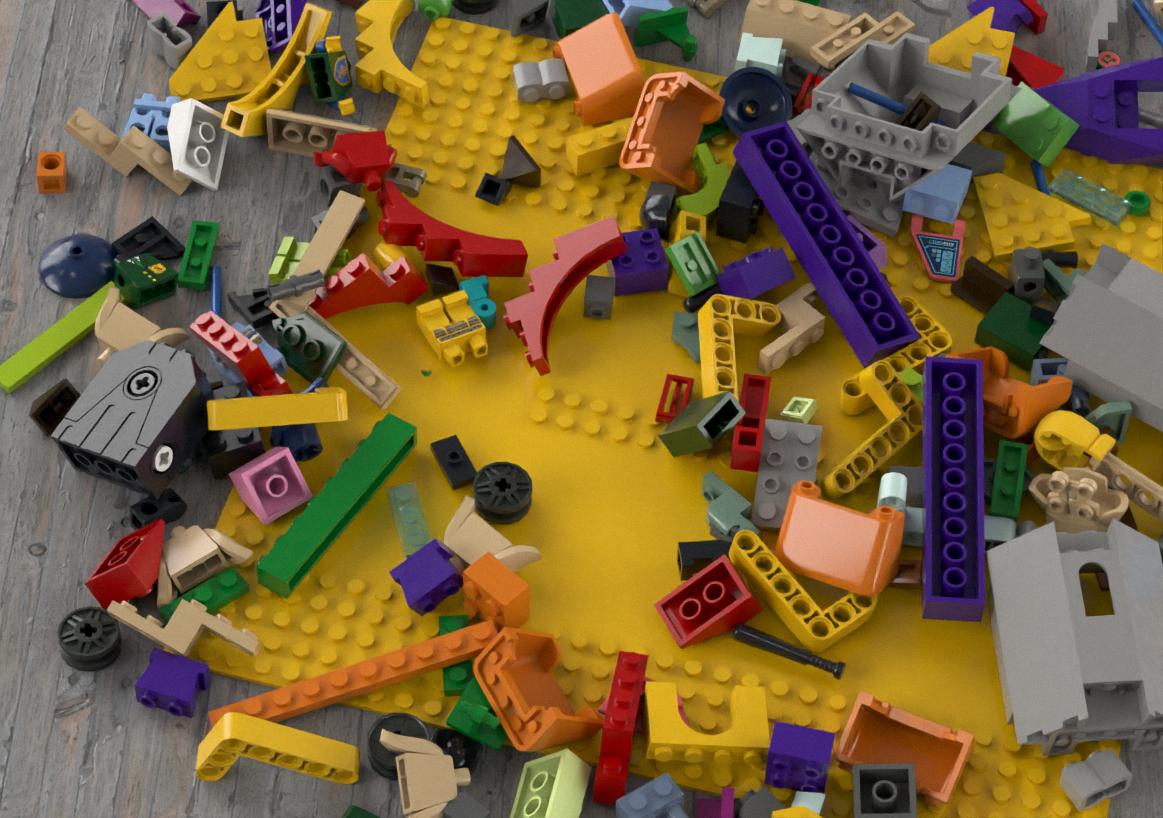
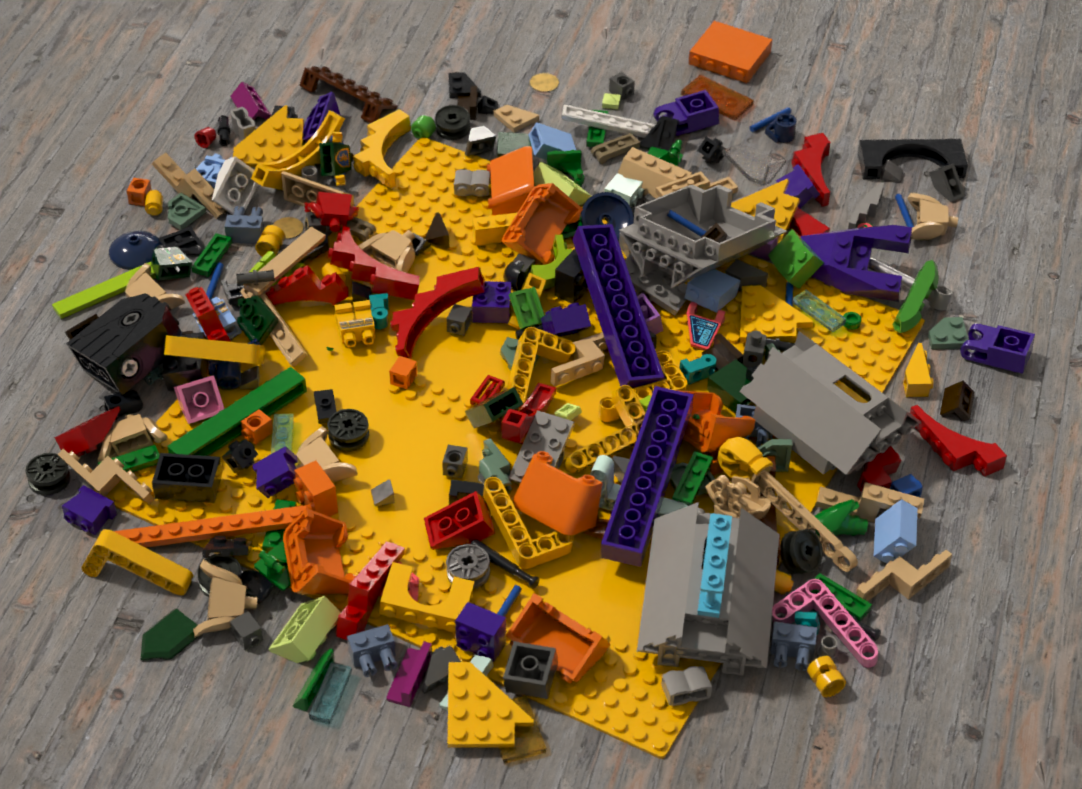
camera: 15 degrees right, 5 degrees down
(81, 186) = (154, 203): none -> yellow brick
(117, 68) = (205, 137): none -> red hat
(130, 192) = (184, 211): none -> sand green plate
(140, 53) = (224, 130): none -> black pin
(233, 205) = (244, 228): none -> sand blue brick
(278, 219) = (270, 240): none -> yellow wheel
(290, 192) = (291, 226): none -> pearl gold sticker
(297, 102) = (310, 173): none -> light grey beam
(302, 609) = (187, 477): none -> black brick
(332, 439) = (250, 378): none -> flat silver slope
(364, 561) = (240, 455): none -> black brick
(372, 503) = (256, 427): none -> orange brick
(399, 700) = (227, 547): none -> black wing
(465, 204) = (391, 249): none -> tan torso
(548, 391) = (403, 372): none -> orange brick
(585, 579) = (383, 494): none -> flat silver slope
(659, 58) = (546, 174): none -> yellowish green slope
(669, 513) = (455, 461): none -> dark grey brick
(743, 661) = (468, 563): none -> flat silver wheel
(815, 704) = (509, 600): none -> blue bar
(957, 312) = (699, 368): none -> teal leg
(1112, 610) = (714, 565): none -> medium azure fence

